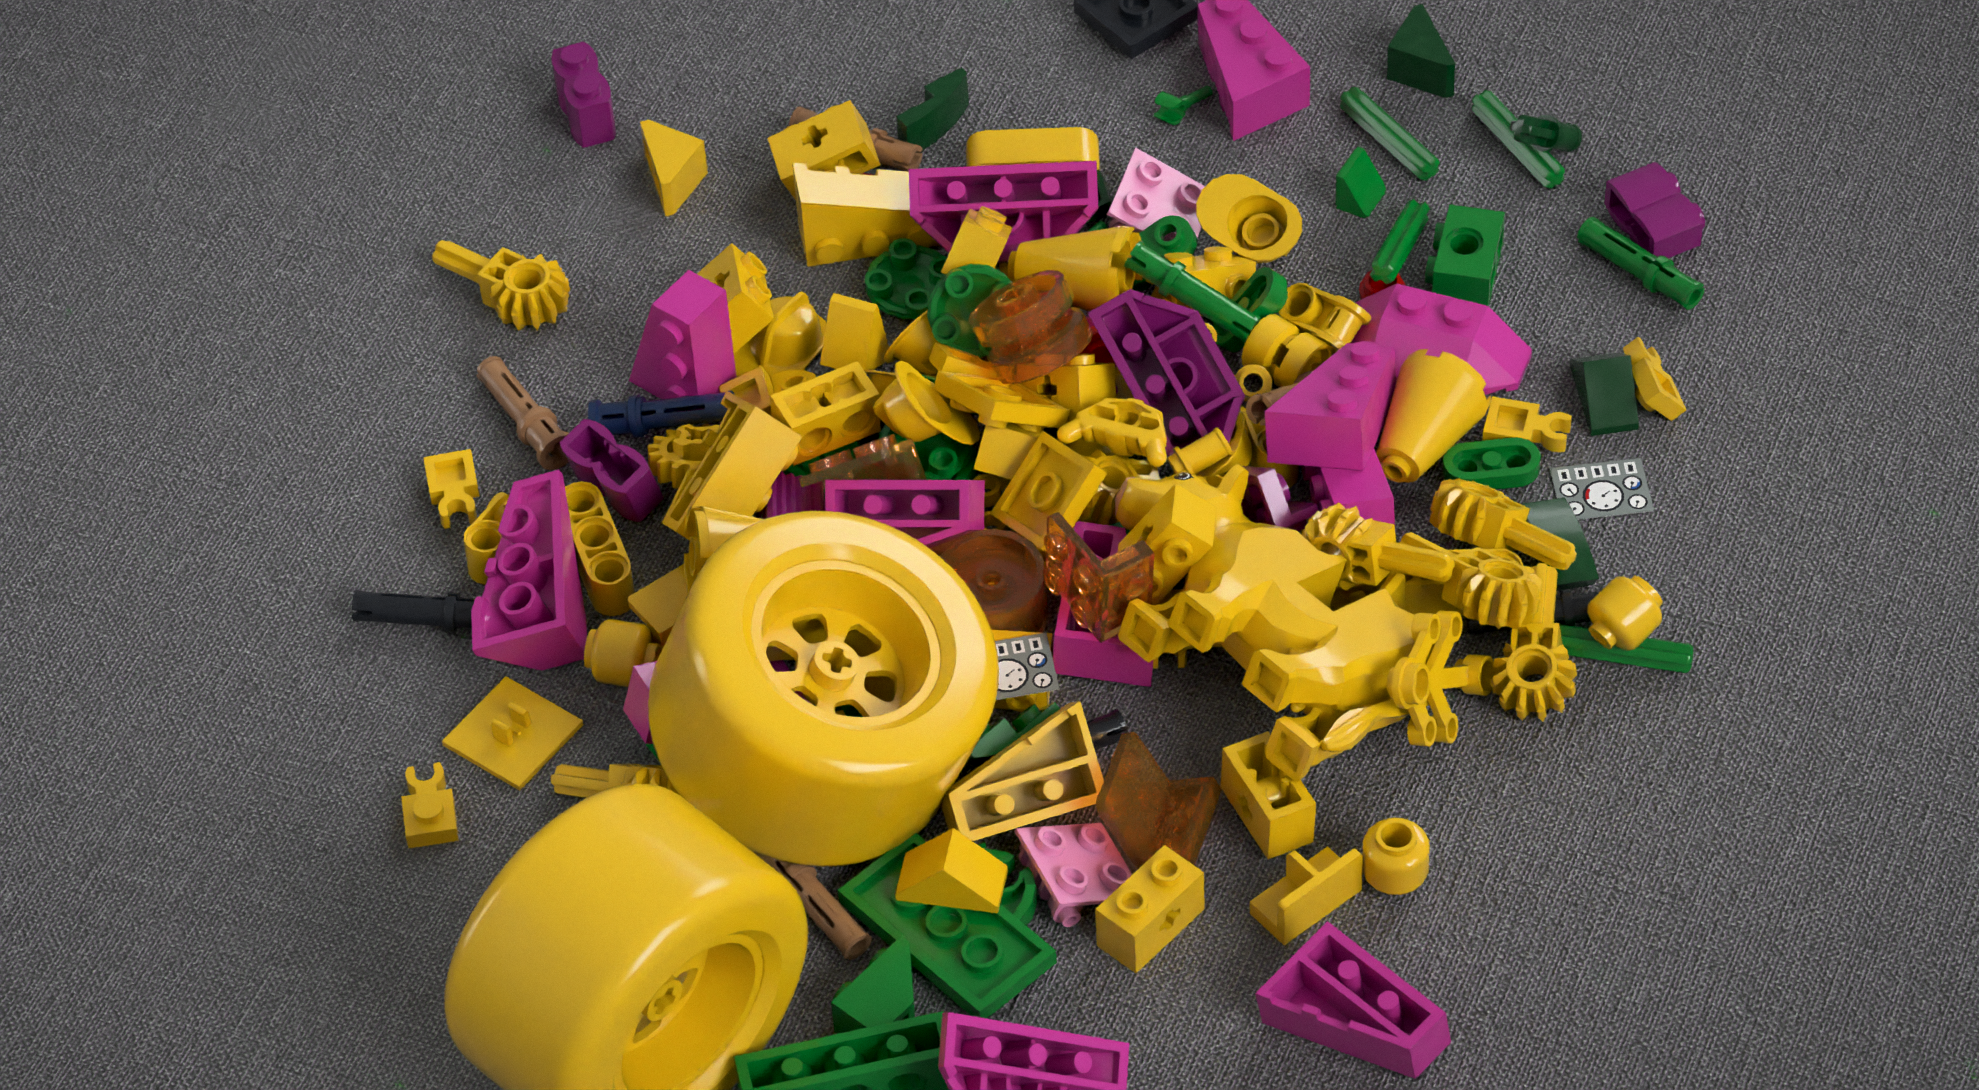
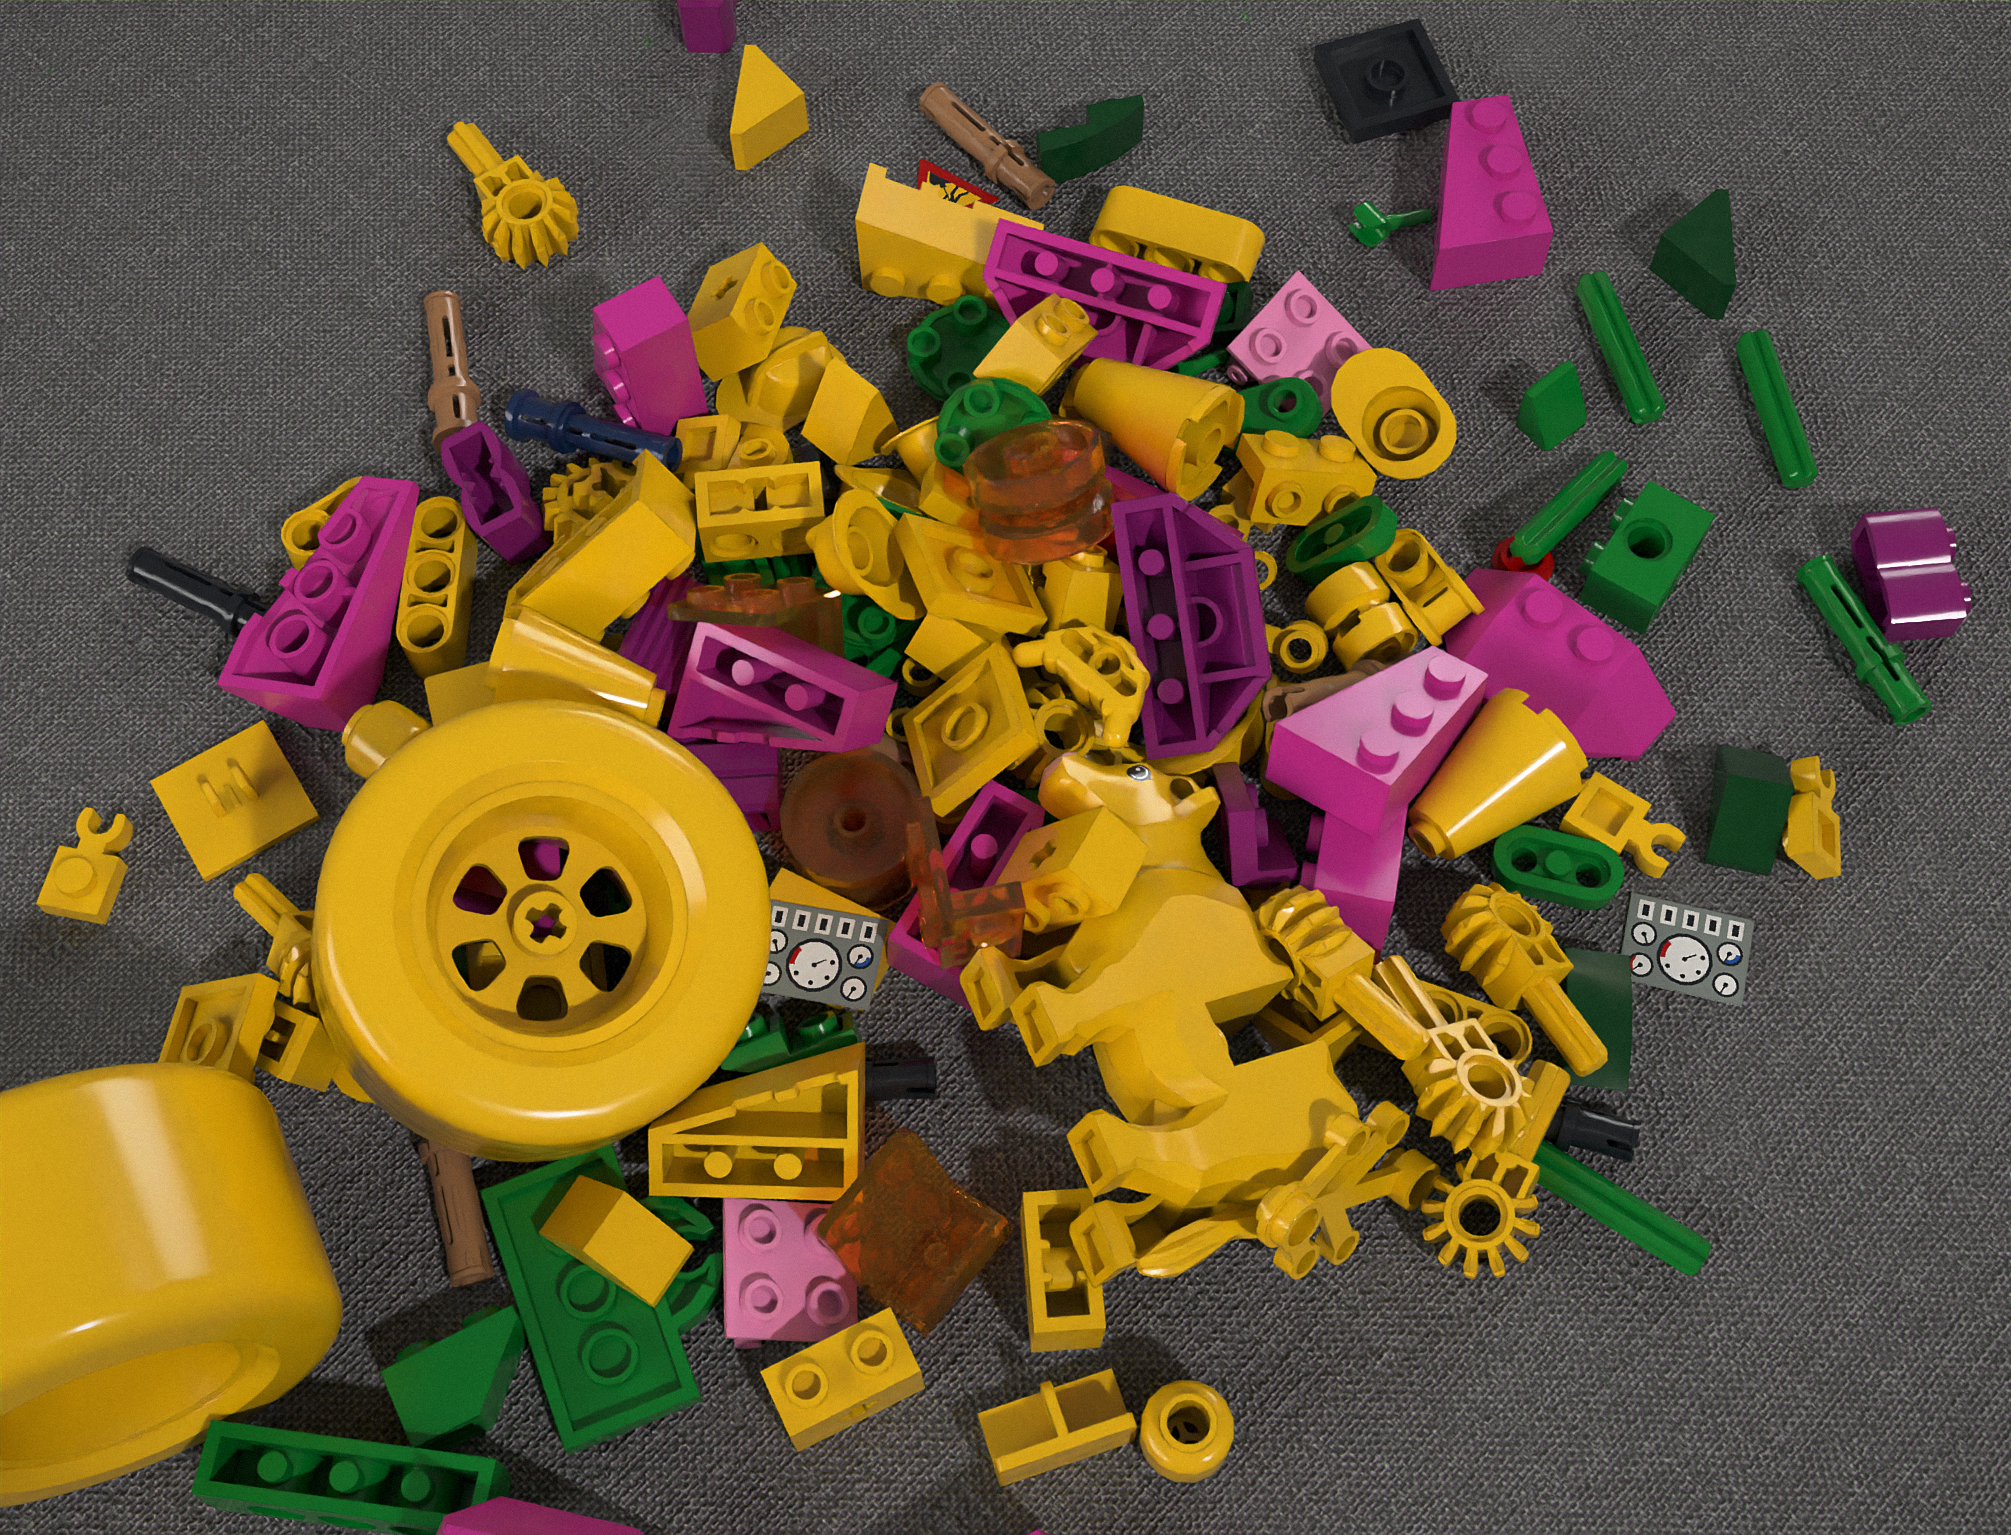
camera: 20 degrees right, 15 degrees up
(452, 484) = (324, 436): yellow plate -> none
(825, 141) = (940, 145): yellow brick -> none
(1191, 291) = (1270, 498): green pin -> none
(1200, 453) = (1178, 743): yellow pin -> none
(1546, 133) = (1813, 419): dark green axle -> none
(1624, 613) = (1635, 1178): yellow head -> none

